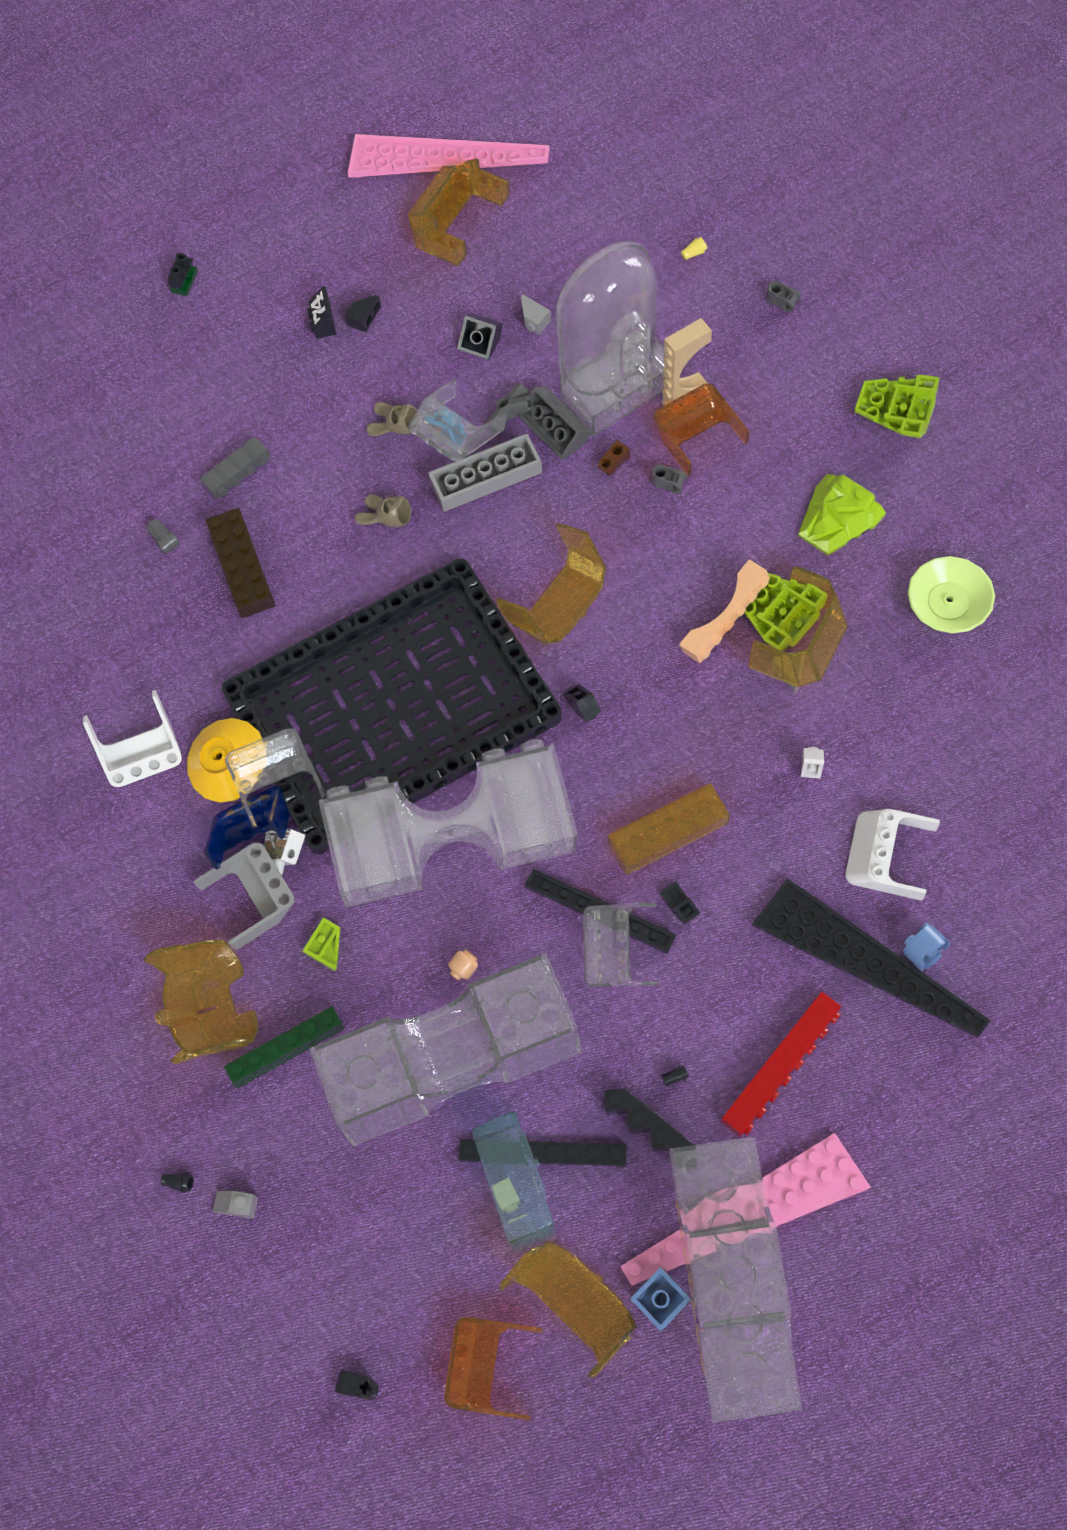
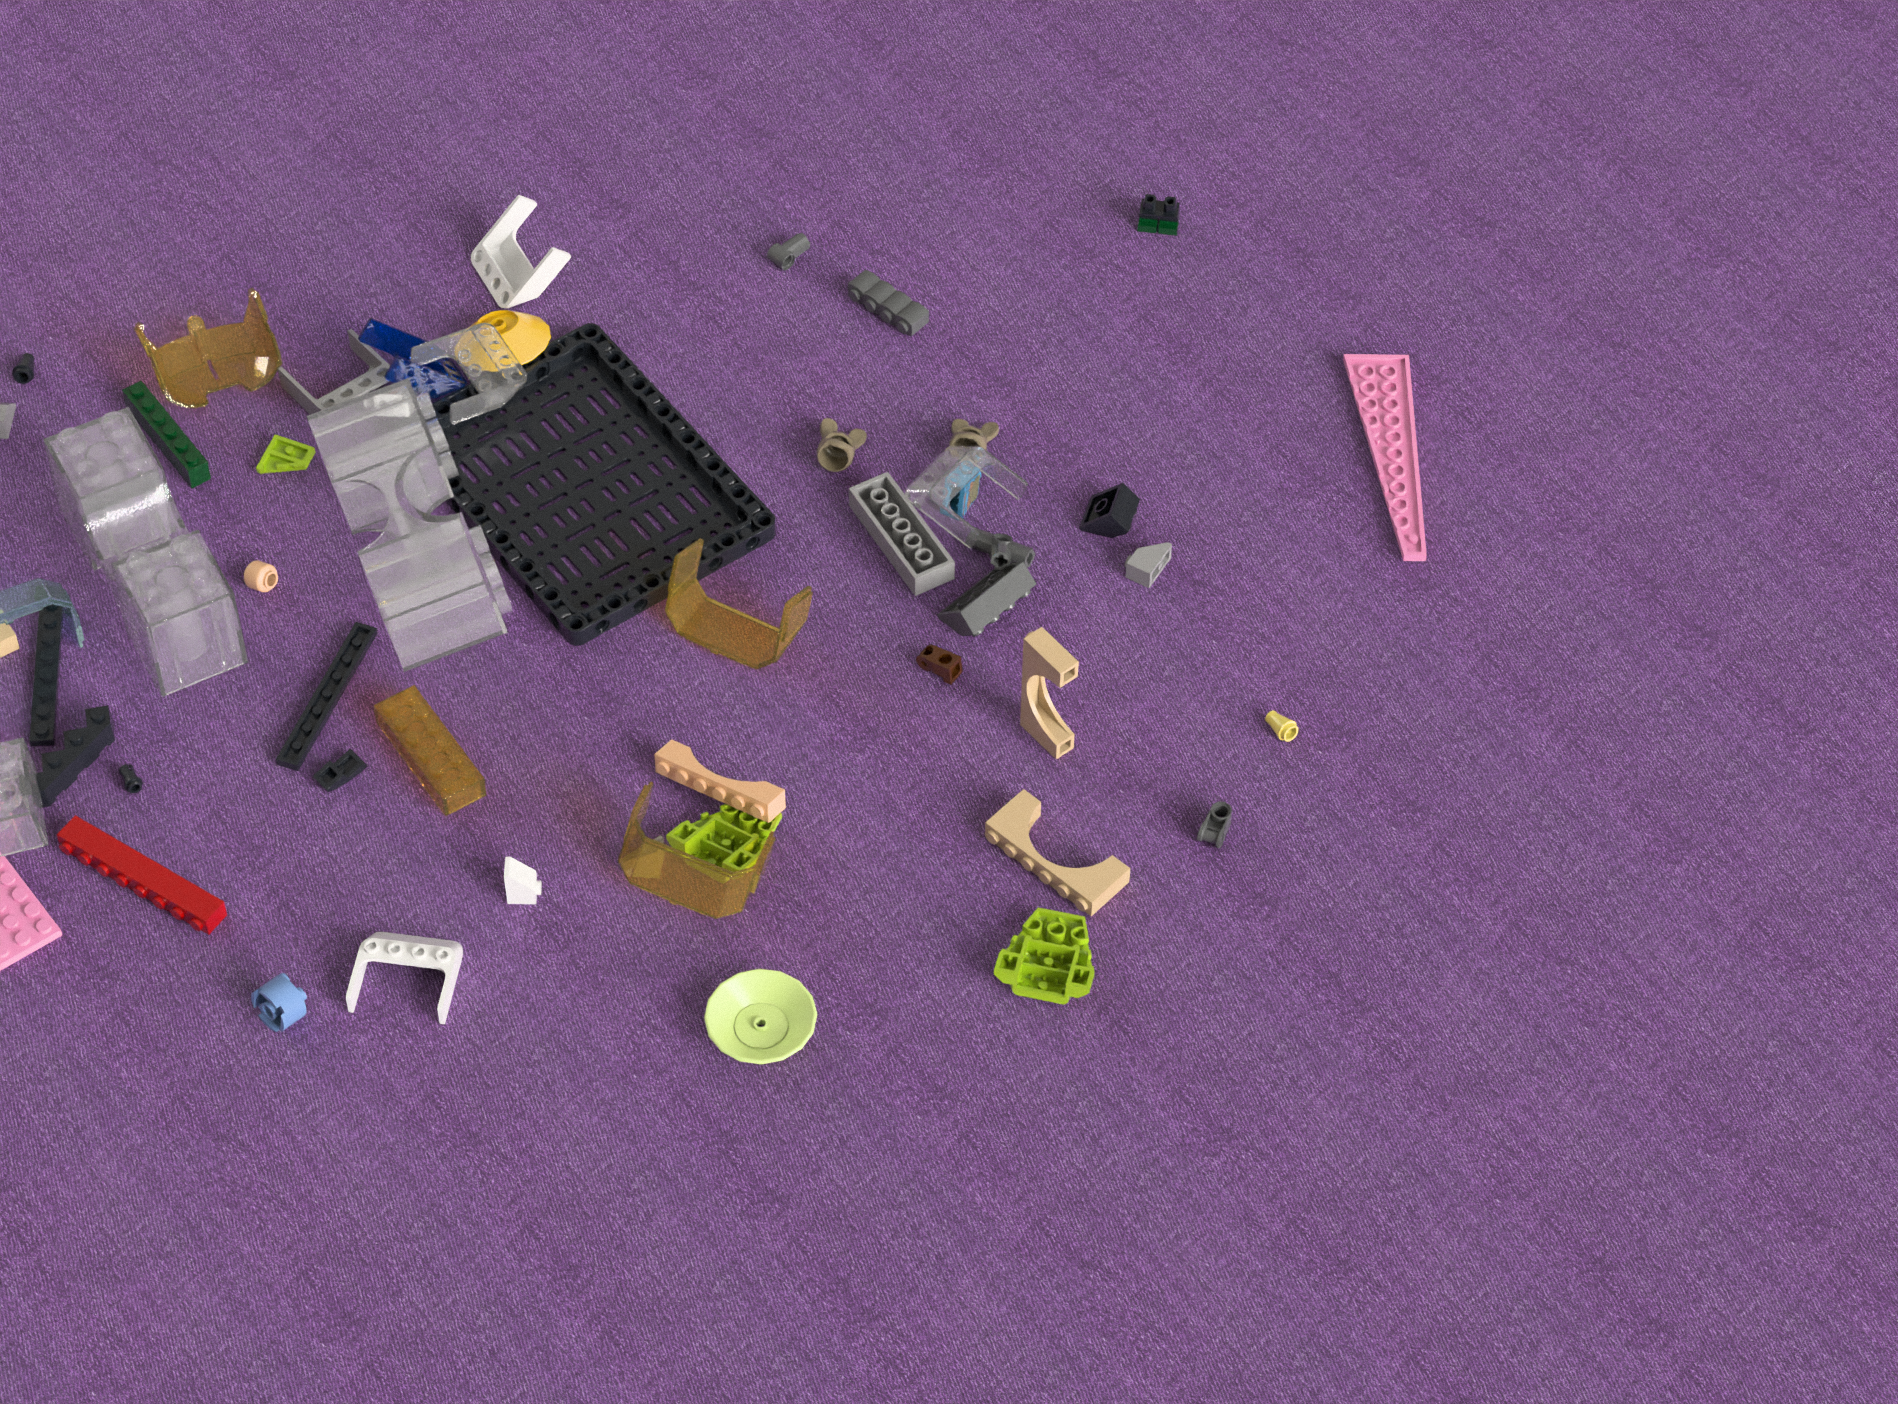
camera: 75 degrees right, 15 degrees down
(240, 563) = (757, 322): dark brown brick -> none
(321, 315) = (1116, 355): black slope -> none
(363, 312) = (1128, 395): black slope -> none
(445, 200) = (1302, 450): clear yellow wedge -> none
(582, 702) = (591, 657): black slope -> none
(608, 945) = (271, 702): clear windscreen -> none
(609, 336) = (1071, 581): clear piece -> none
(670, 478) = (914, 721): dark grey piece -> none
(693, 415) = (1003, 729): clear orange windscreen -> none
(779, 422) = (1085, 887): none -> tan arch
(823, 933) = (300, 912): black wing -> none
(839, 513) = (879, 904): lime wedge -> none

